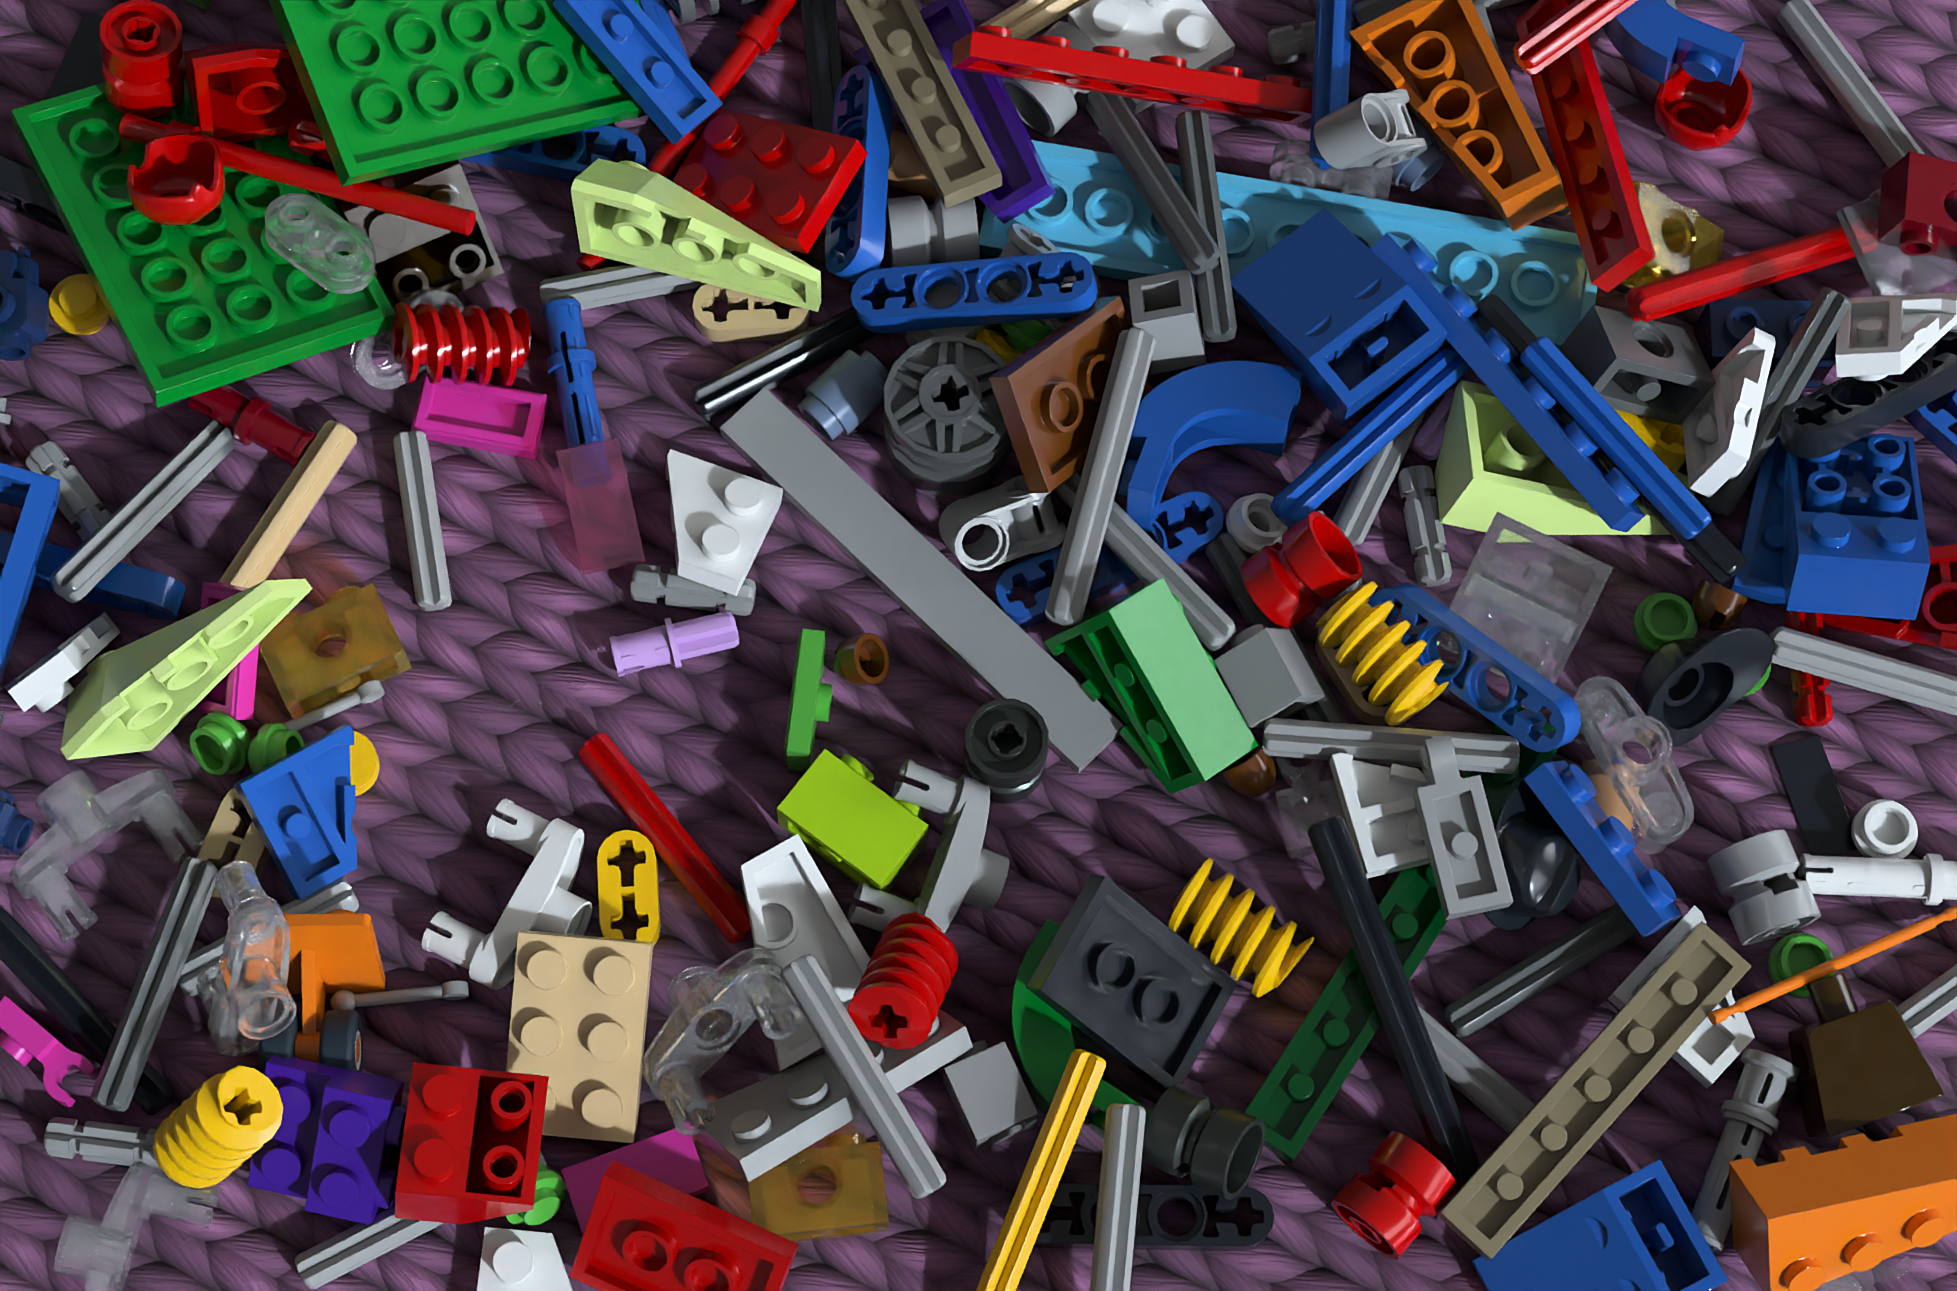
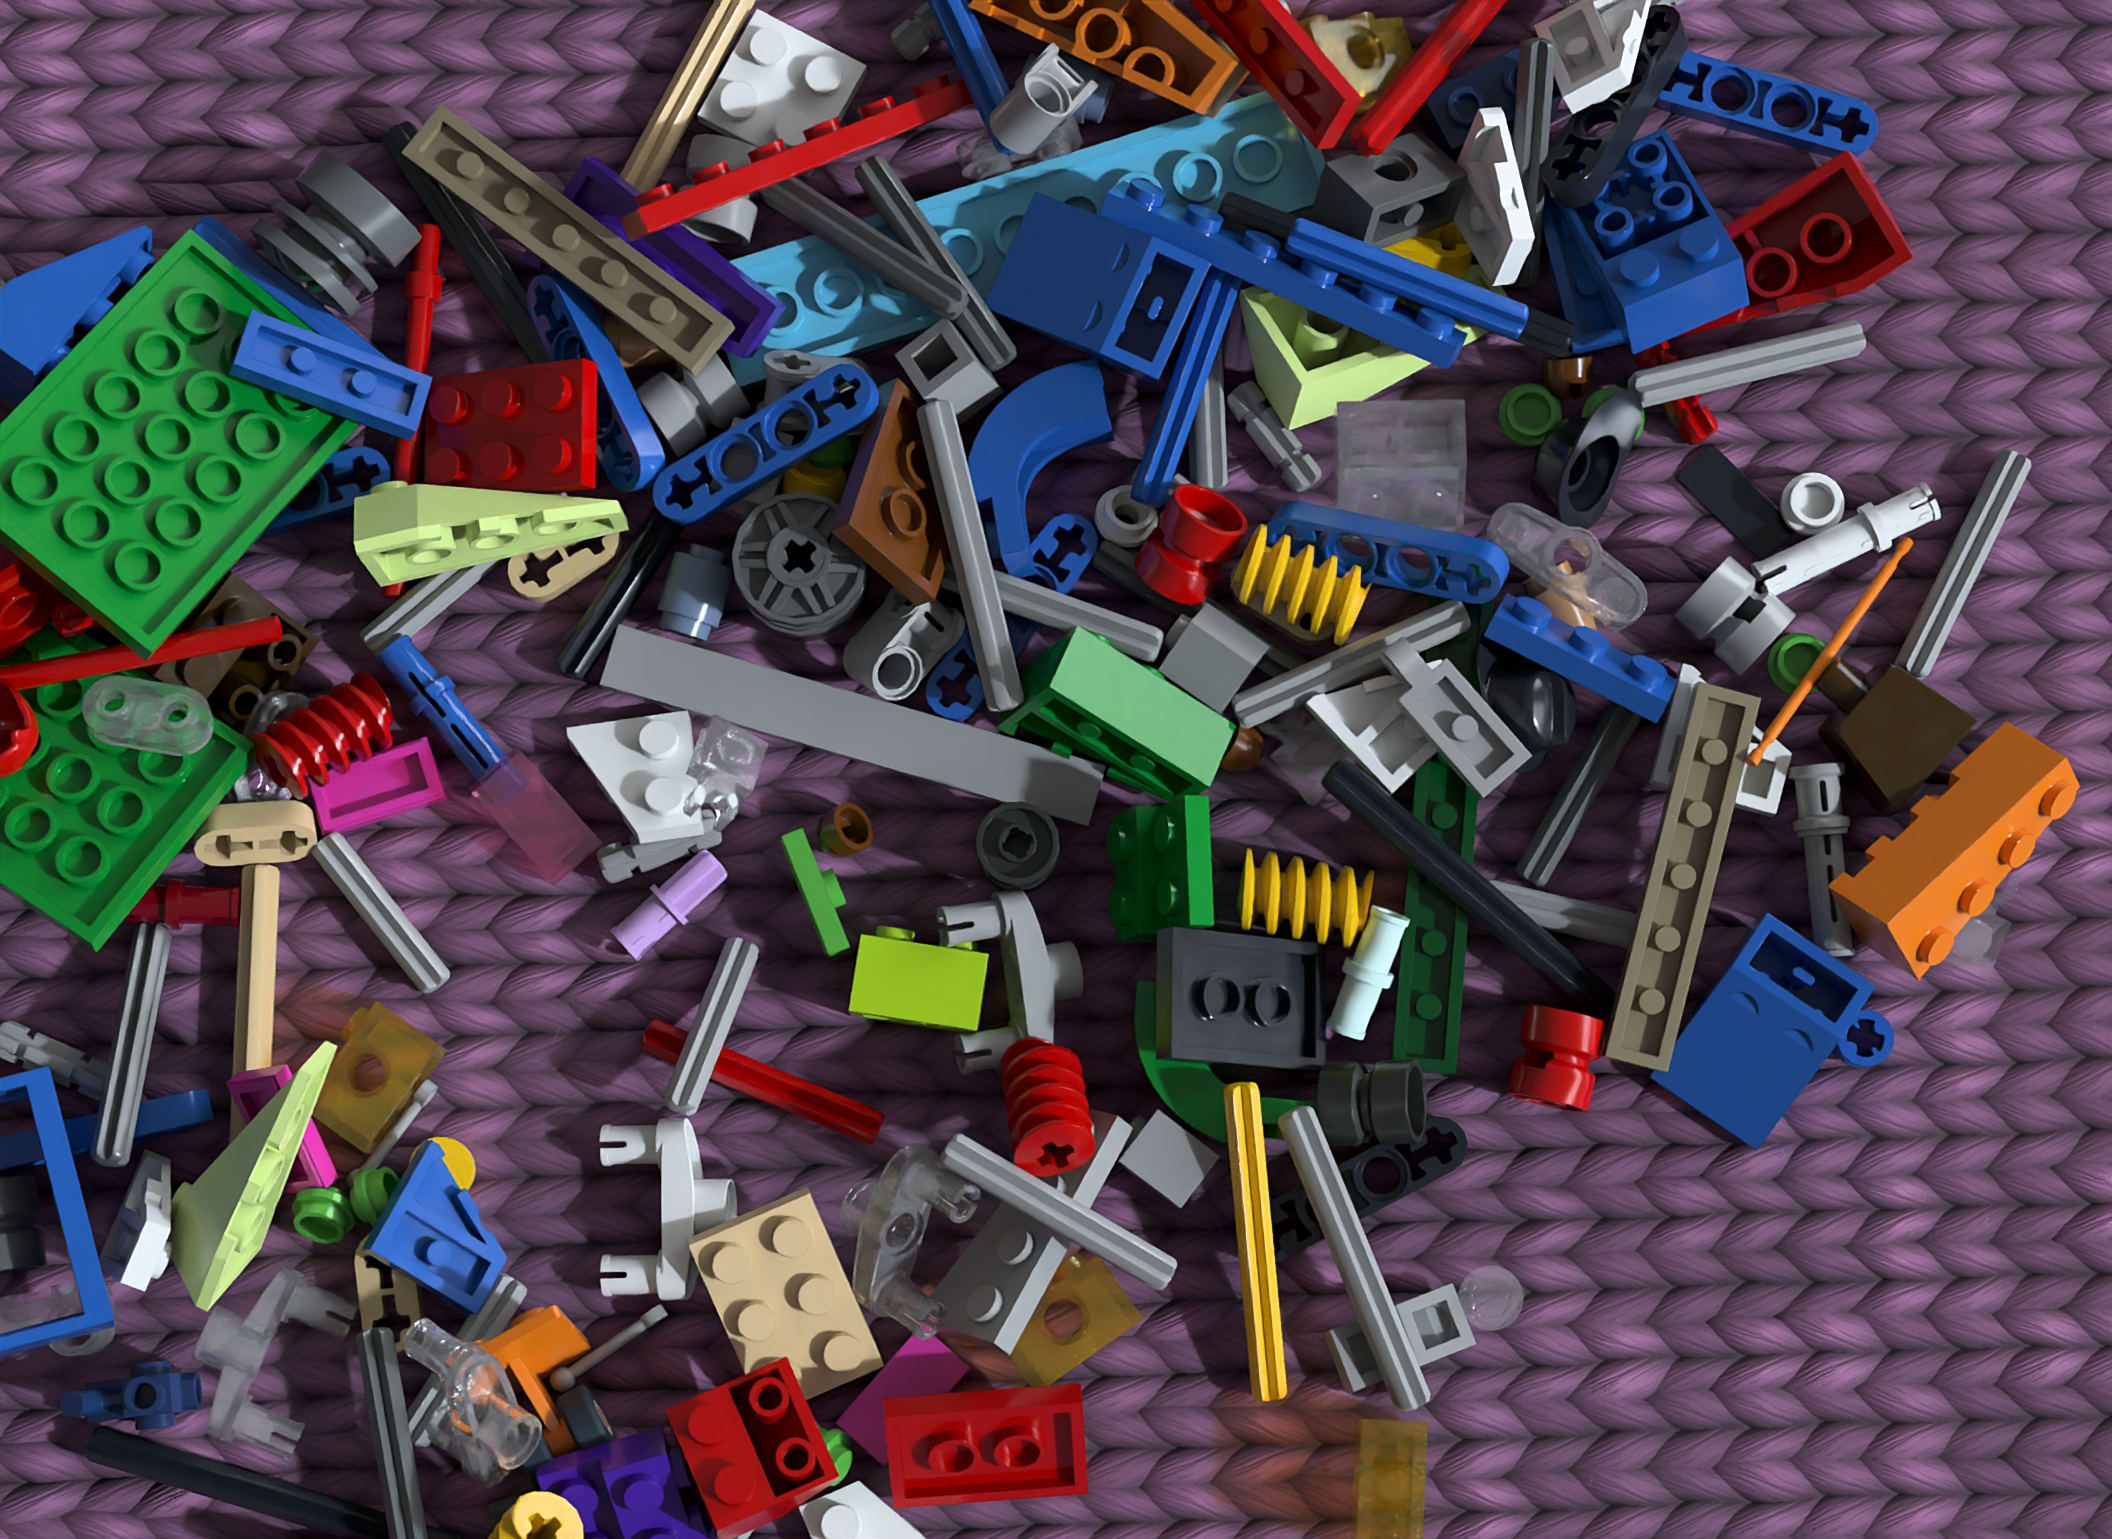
camera: 25 degrees left, 10 degrees up
(353, 394) = (256, 833): none -> tan beam
(645, 888) = (769, 1140): yellow beam -> none
(648, 761) = (711, 1026): none -> light grey axle
(785, 550) = (727, 768): none -> clear plate
(799, 916) = (929, 1103): white wing -> none
(1123, 829) = (1161, 869): none -> green plate
(1261, 1026) = (1367, 972): none -> light aqua pin

